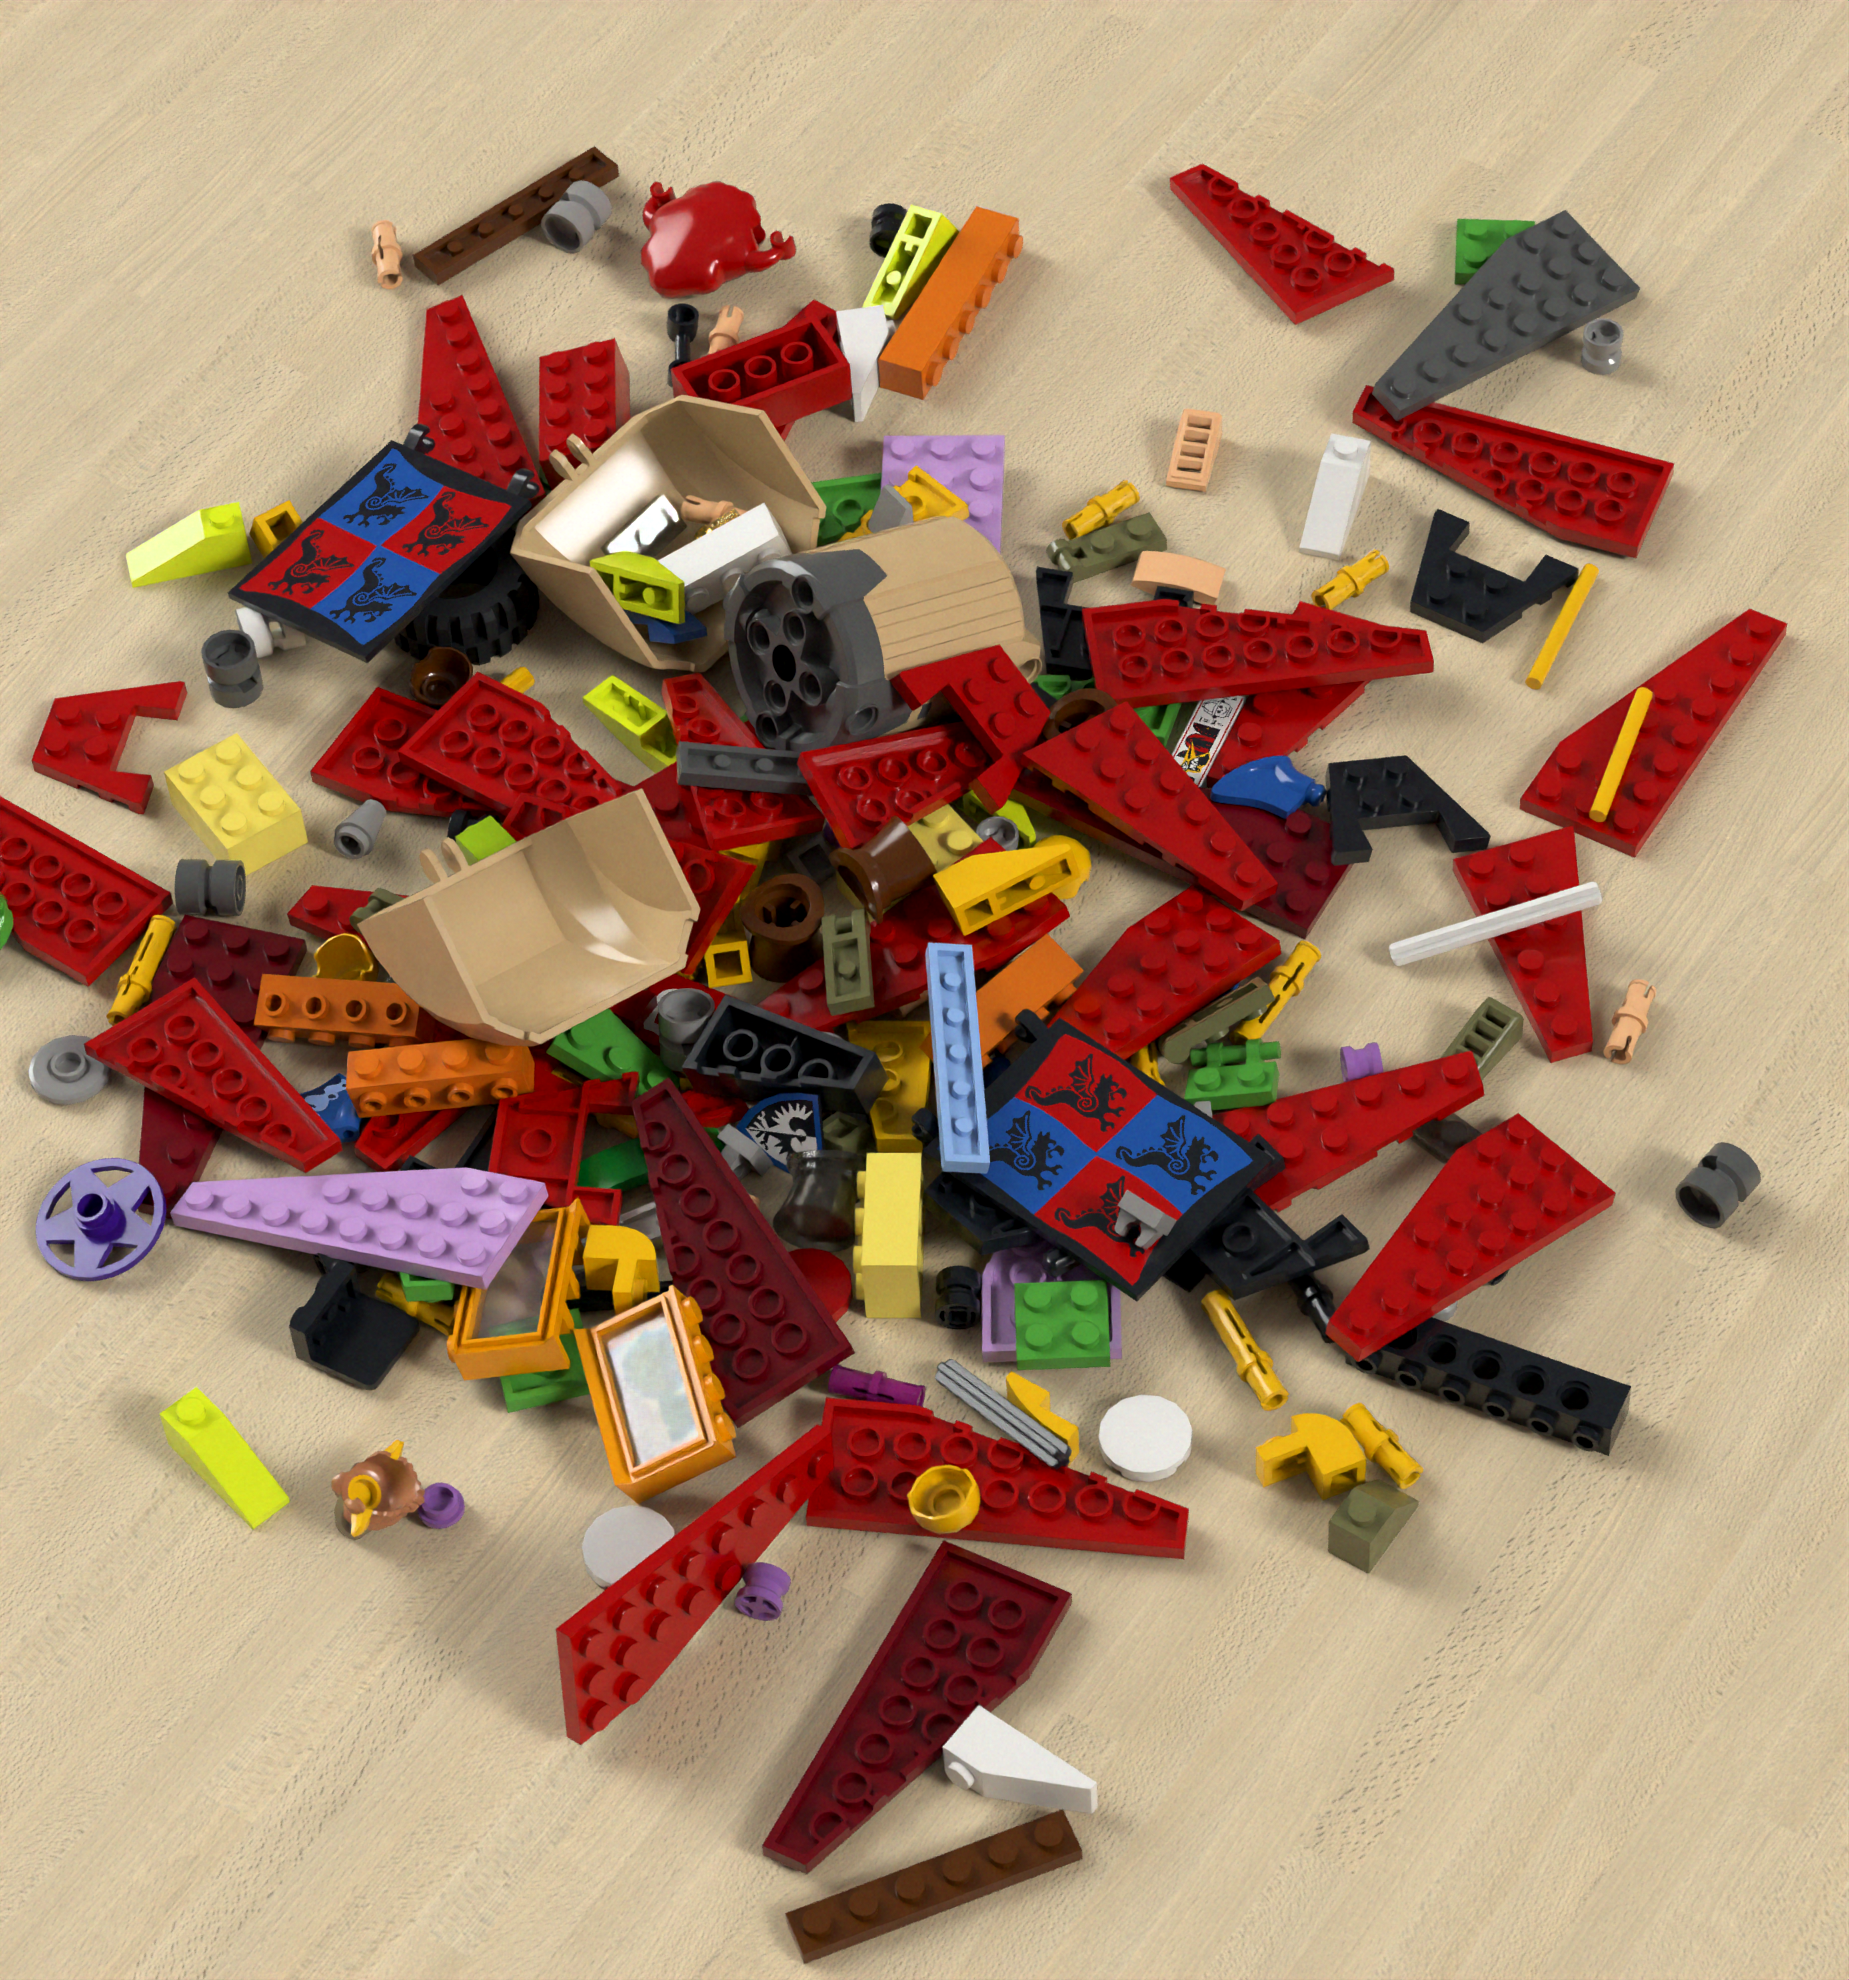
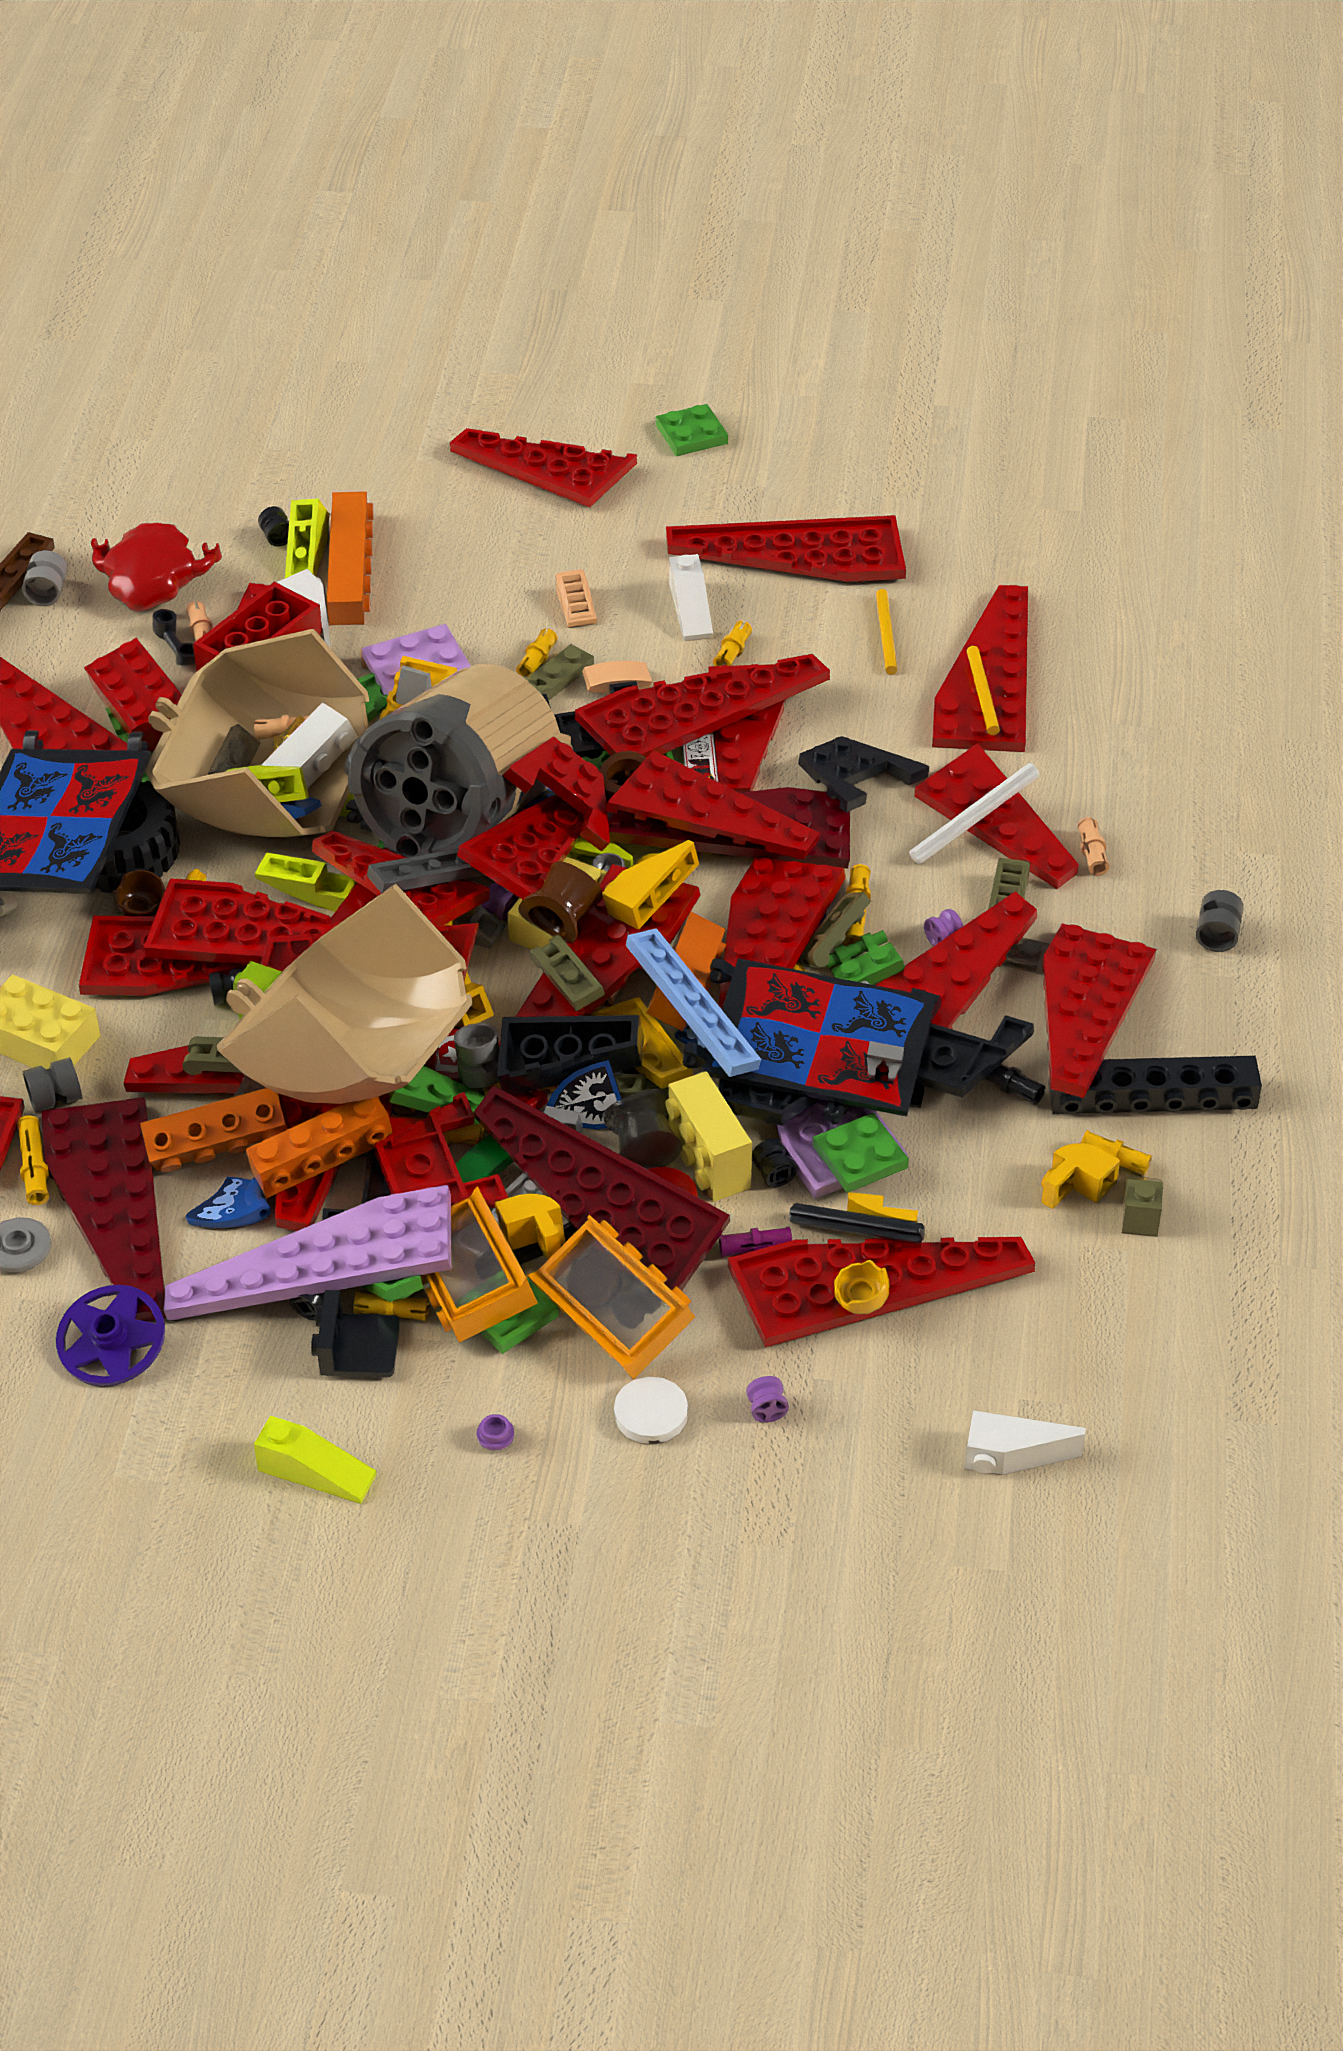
camera: 30 degrees left, 5 degrees down
(208, 1065) = (127, 1198): red wing -> none
(346, 959) = (188, 1094): yellow hair -> none
(360, 830) = (140, 1013): light grey cone -> none
(376, 1492) = (448, 1439): nougat hair -> none
(646, 1618) = (715, 1426): red wing -> none
(784, 926) = (500, 966): reddish brown hat -> none
(933, 1886) = (1009, 1545): reddish brown plate -> none
(955, 1646) = (923, 1404): dark red wing -> none
(1145, 1437) = (957, 1206): white tile -> none
(1252, 1363) = (996, 1132): yellow pin -> none
(1269, 785) = (771, 779): blue arm -> none
(1471, 594) = (814, 631): black wing -> none
(1515, 303) = (731, 452): dark grey wing -> none
(1602, 346) = (801, 462): light grey wheel -> none

